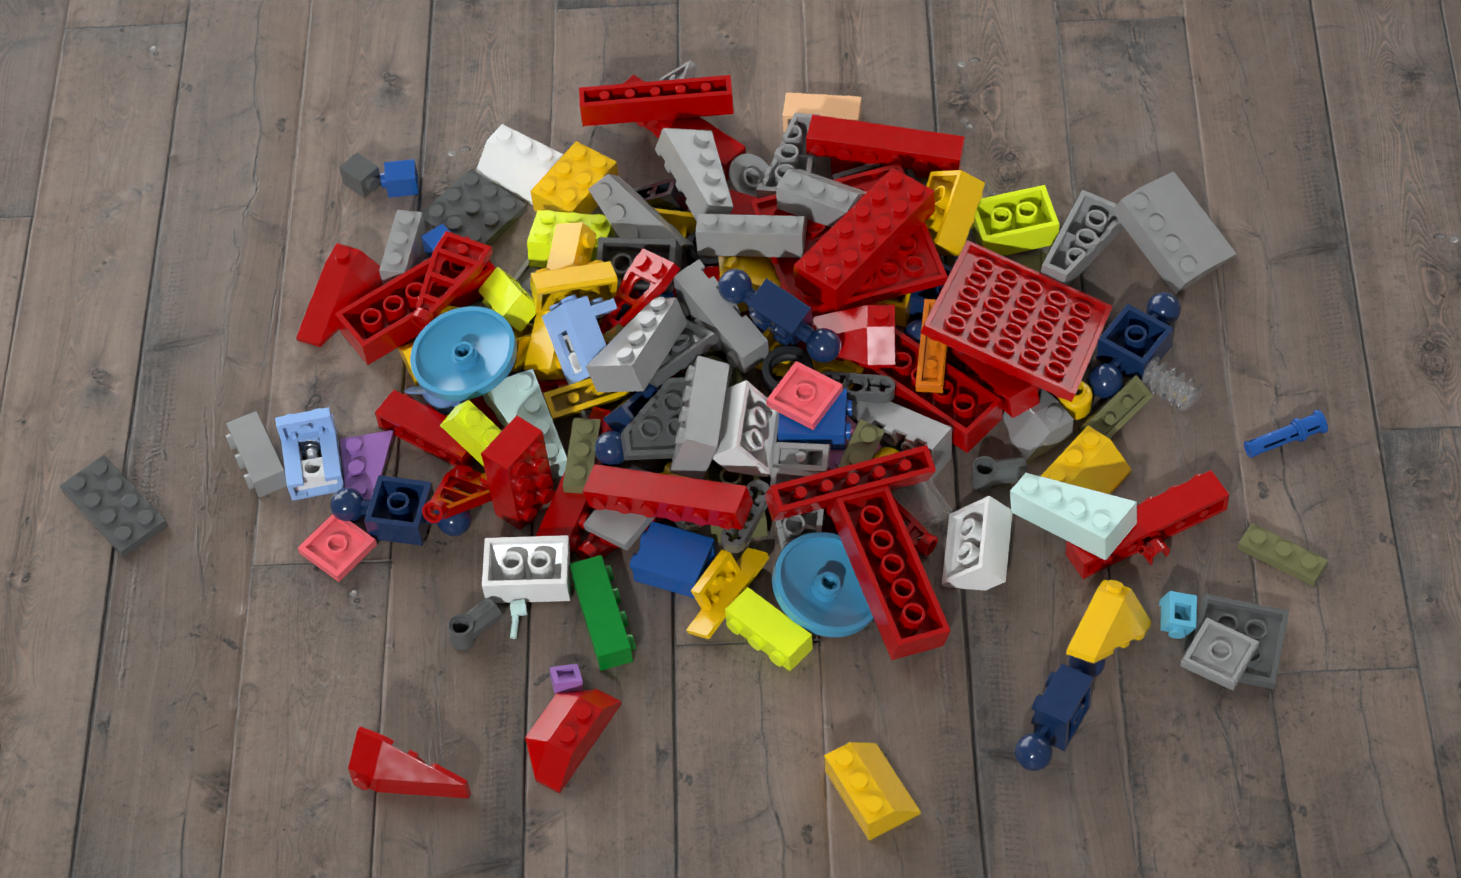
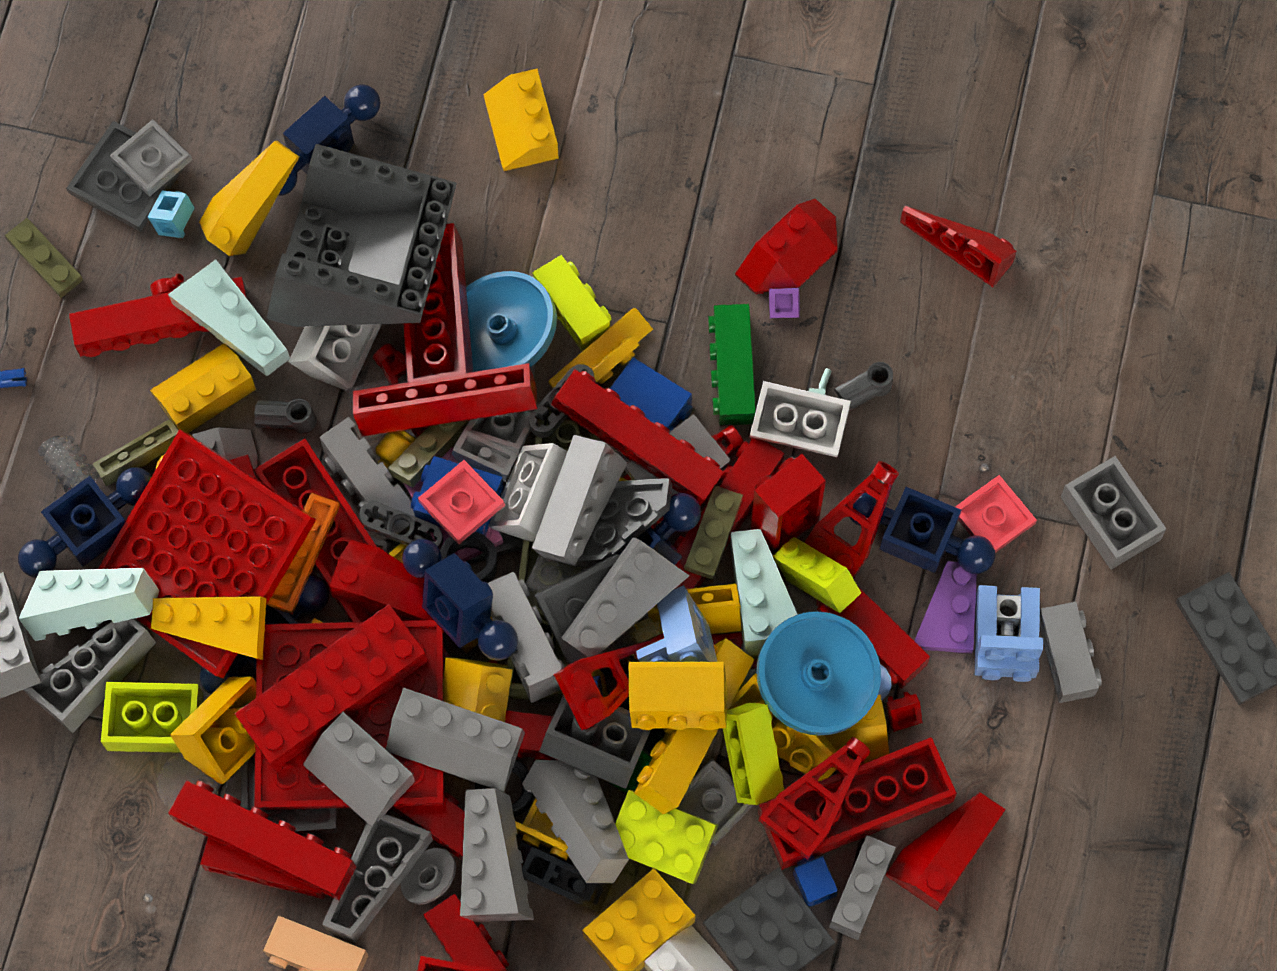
camera: 170 degrees left, 15 degrees up
(228, 565) = (1113, 512): none -> light grey brick
(392, 378) = (904, 711): none -> red tile
(974, 594) = (361, 243): none -> dark grey slope
(979, 266) = (221, 622): none -> yellow wing
(1103, 275) = (86, 599): none -> light aqua wedge

